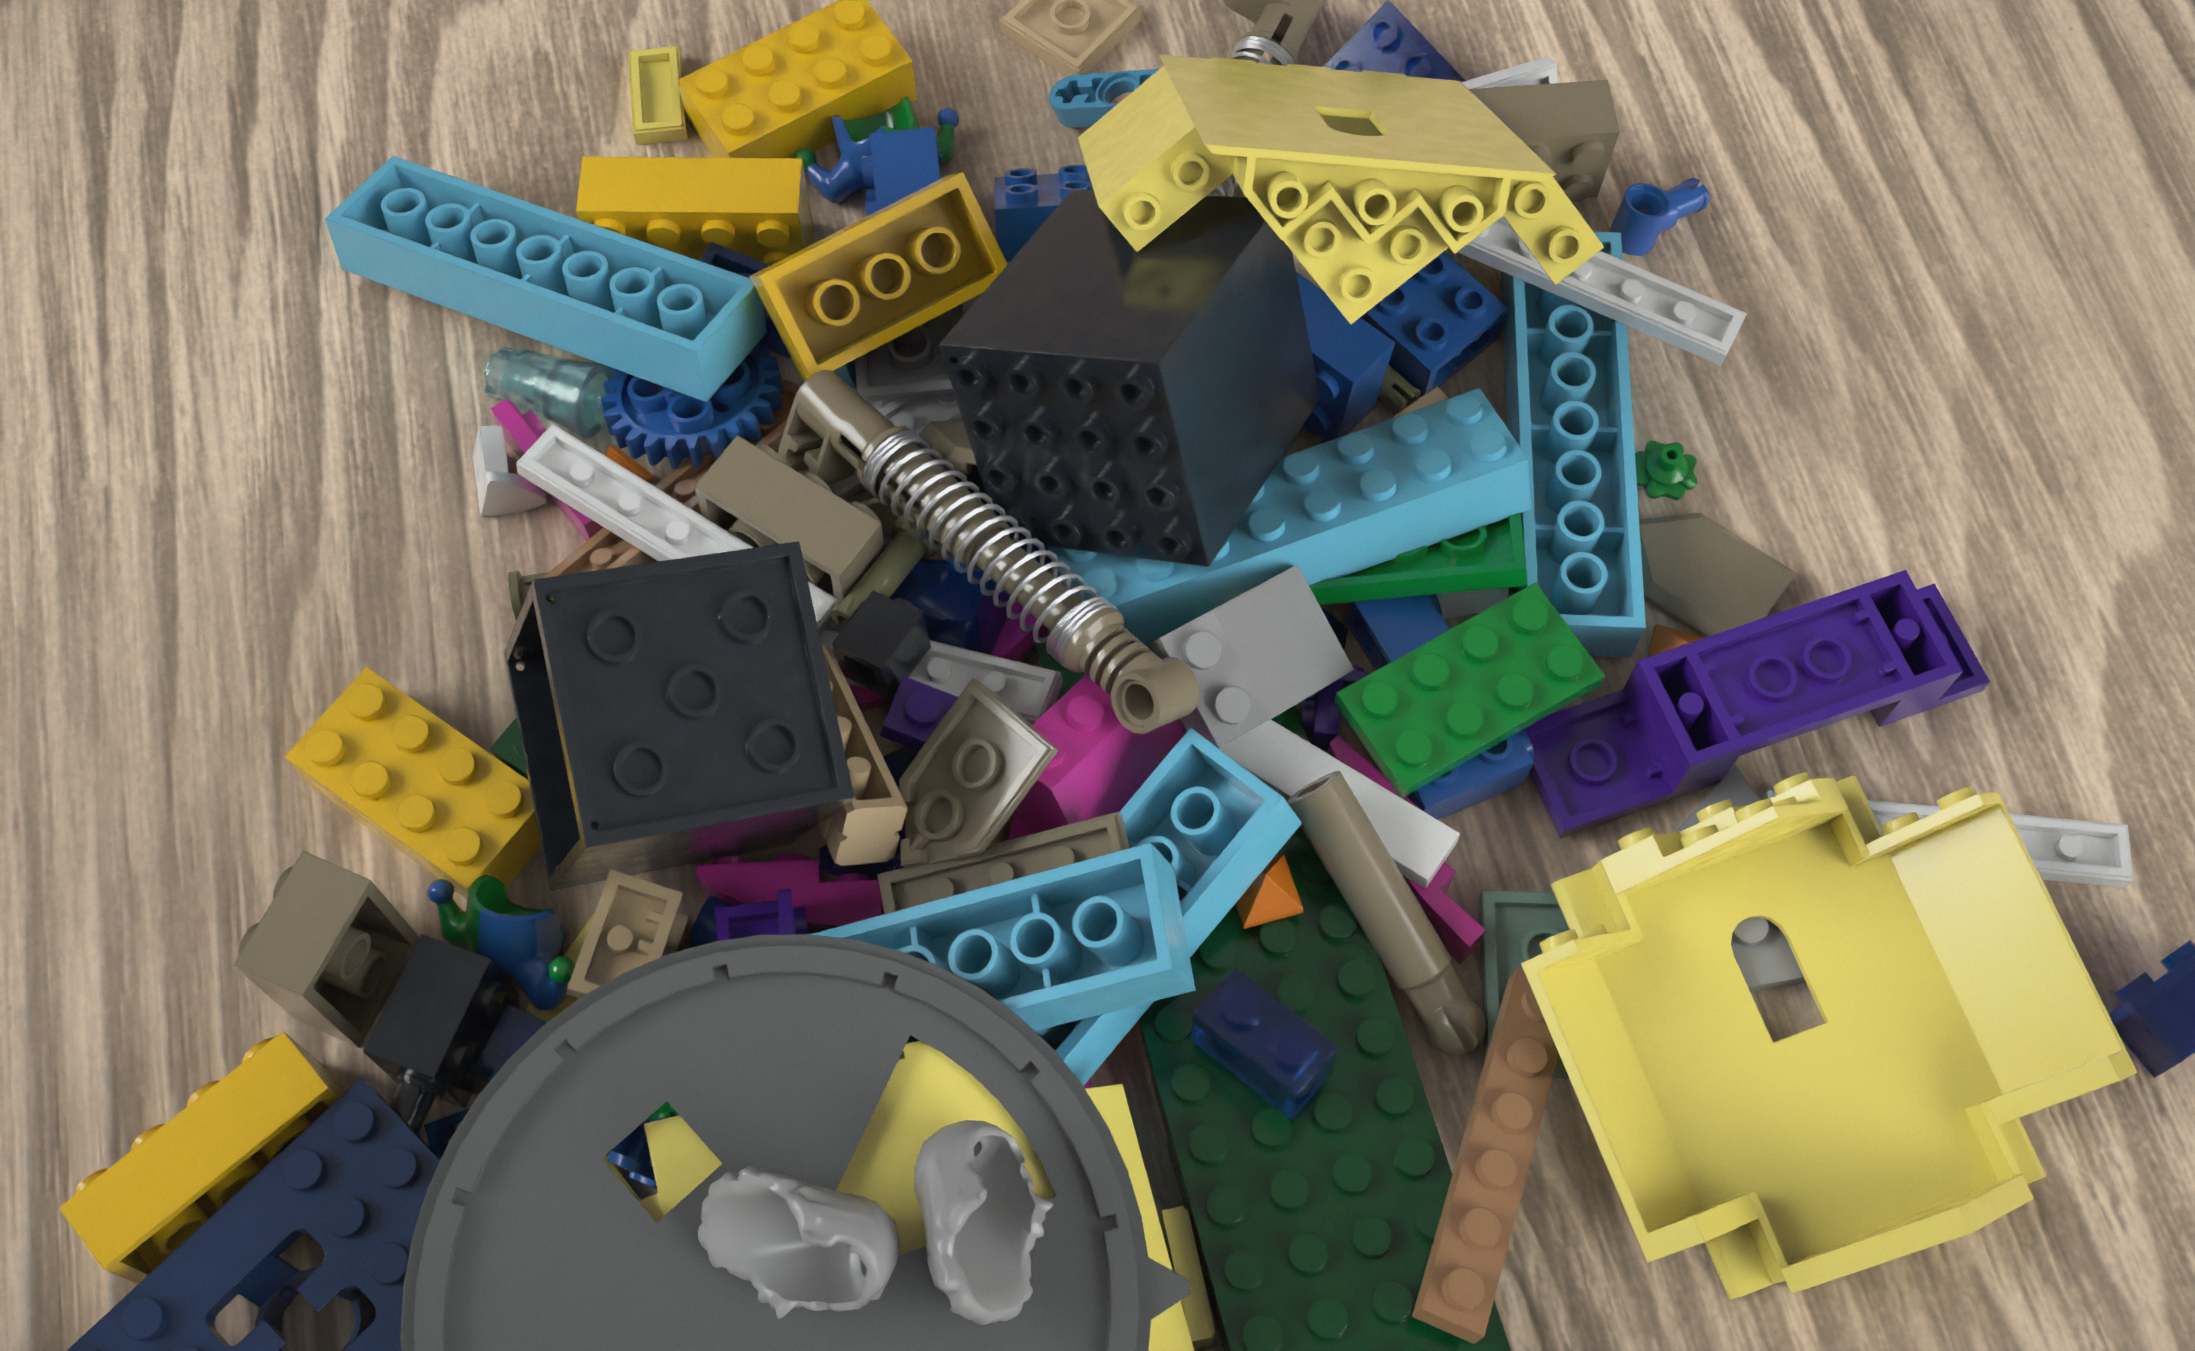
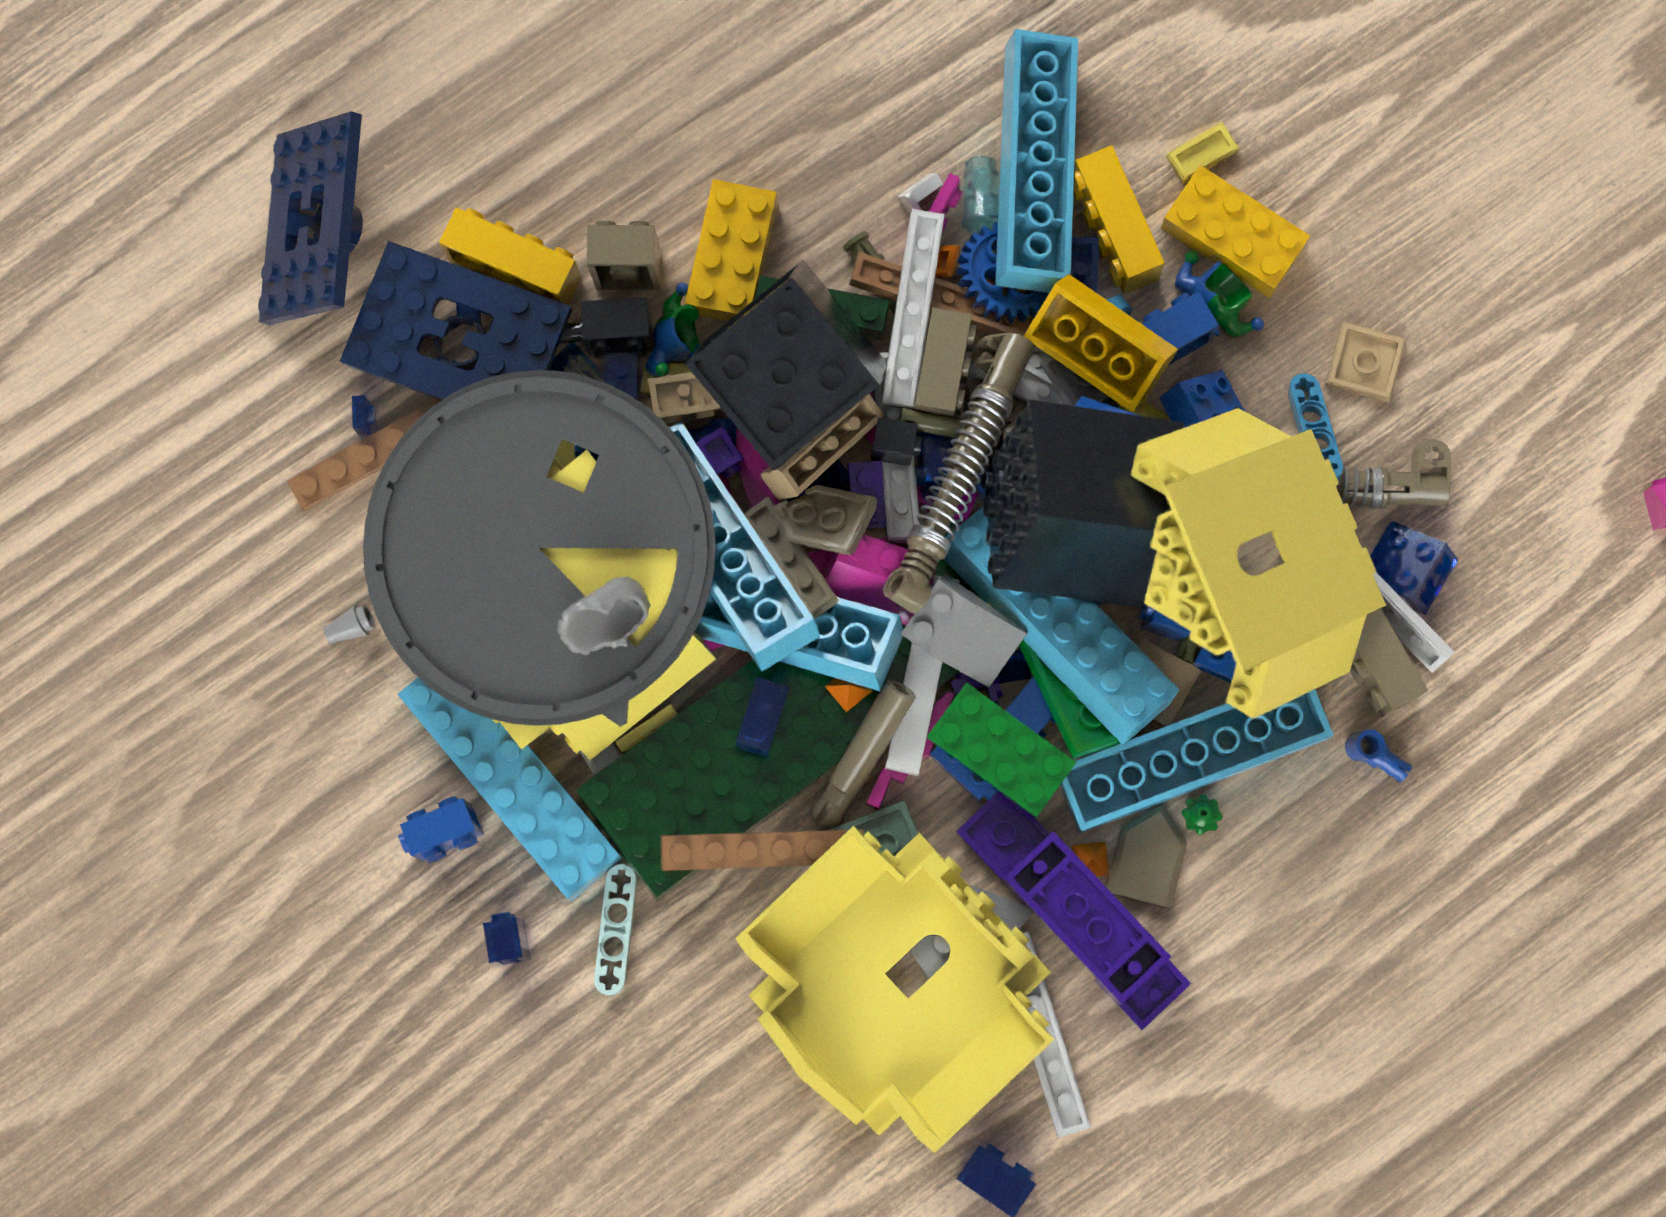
camera: 75 degrees right, 15 degrees up
(798, 1240) = (561, 543): light grey piece -> none
(1620, 293) = (1289, 760): white tile -> none

